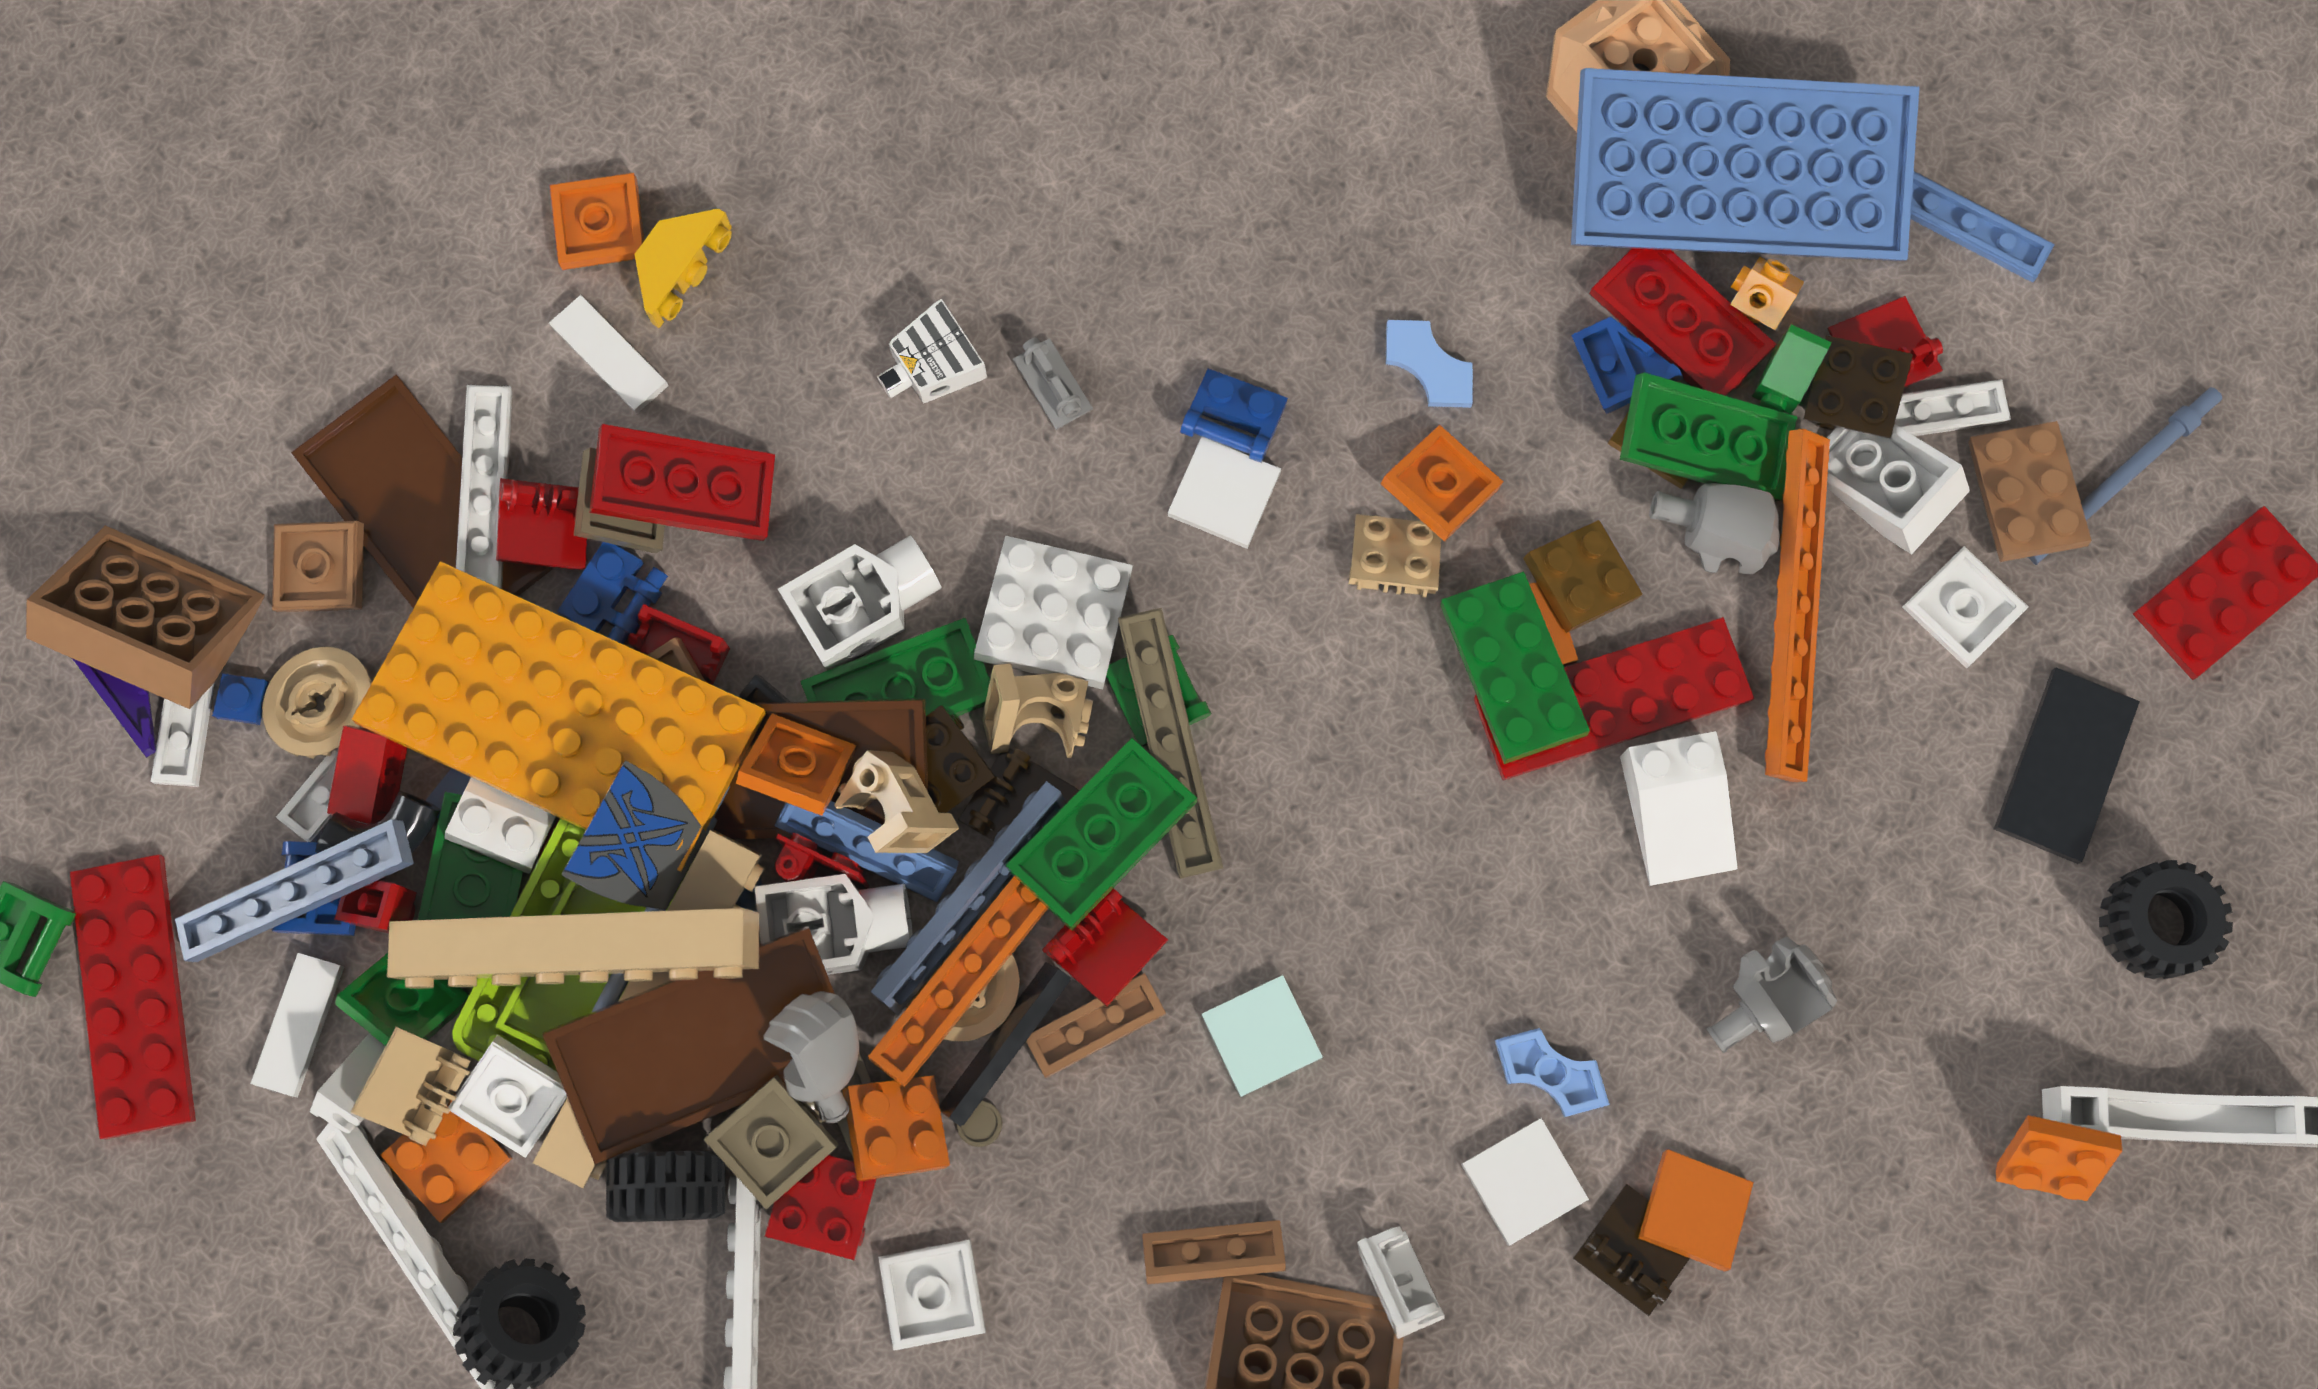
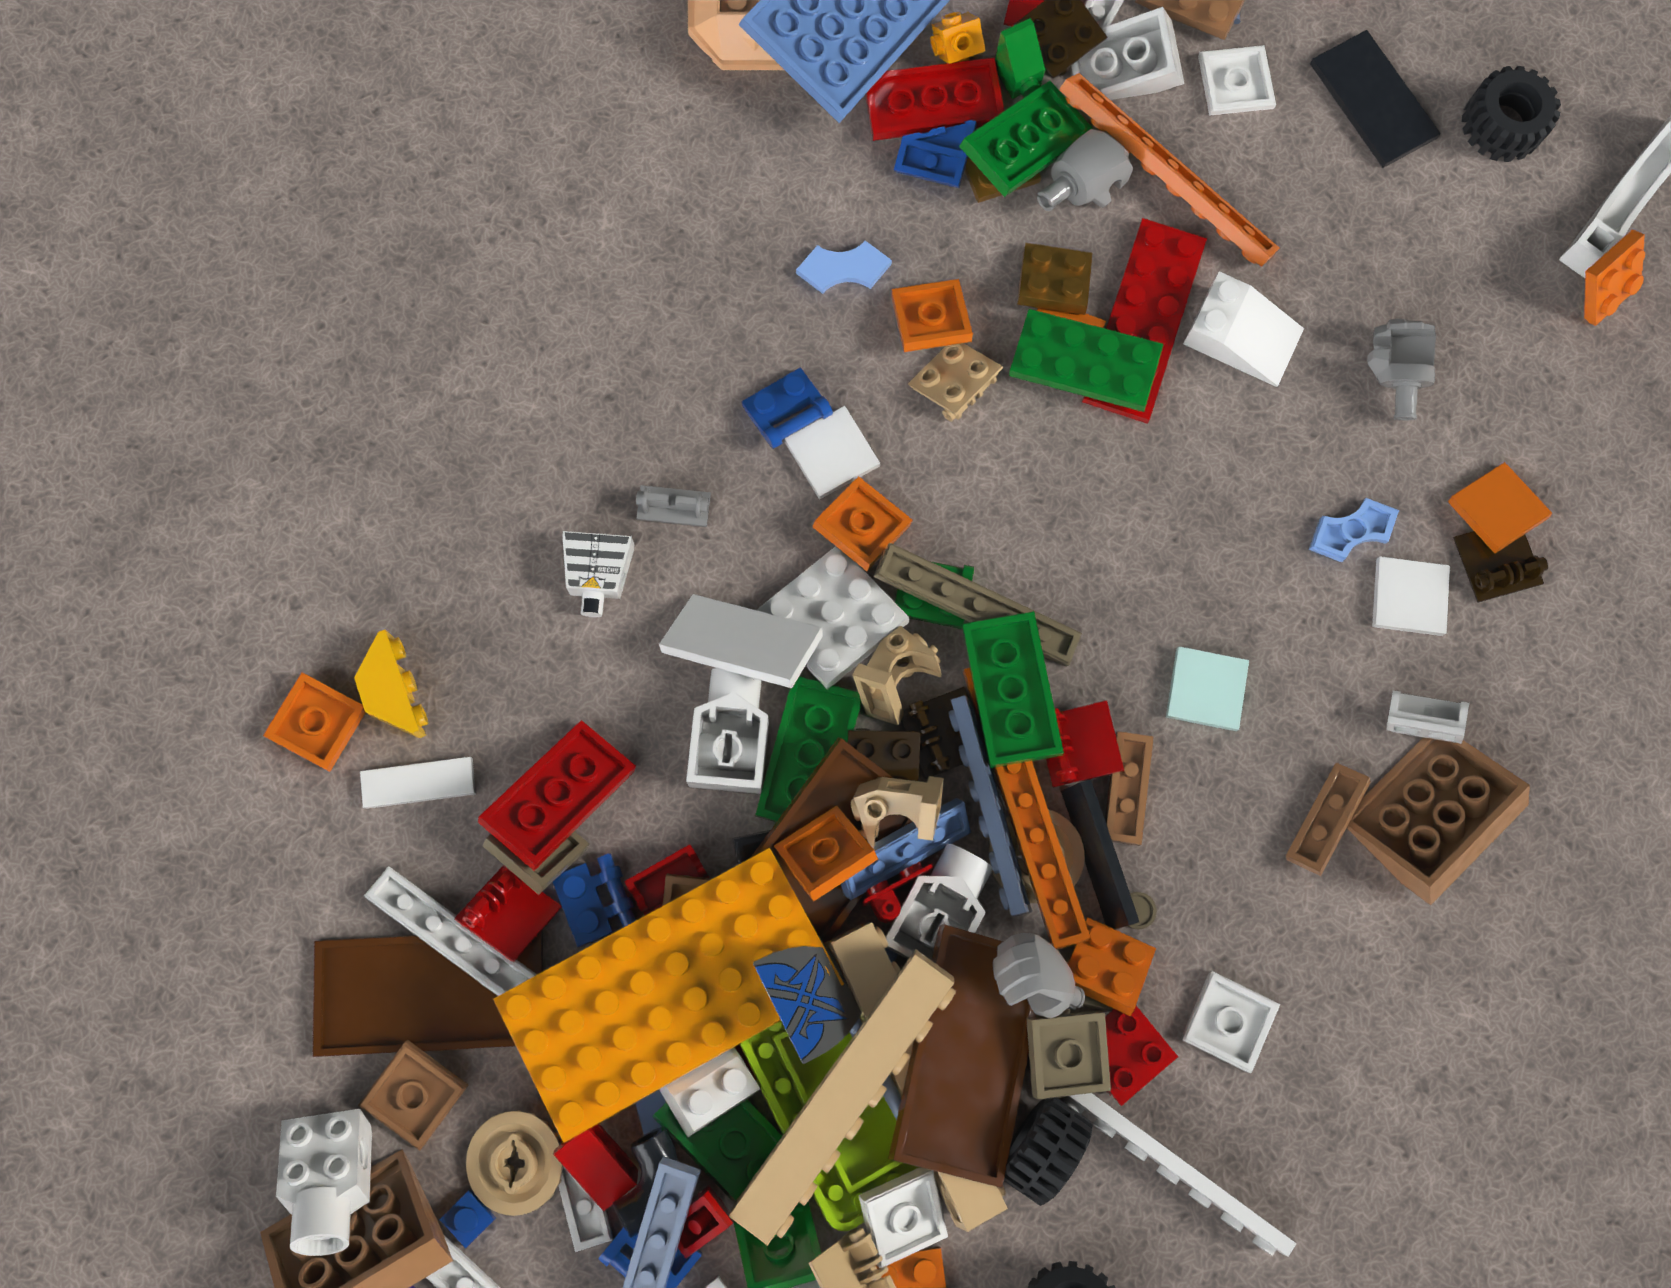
camera: 60 degrees left, 0 degrees up
(186, 540) = (324, 1178): none -> white brick
(956, 540) = (741, 640): none -> white tile
(1170, 571) = (862, 523): none -> orange plate

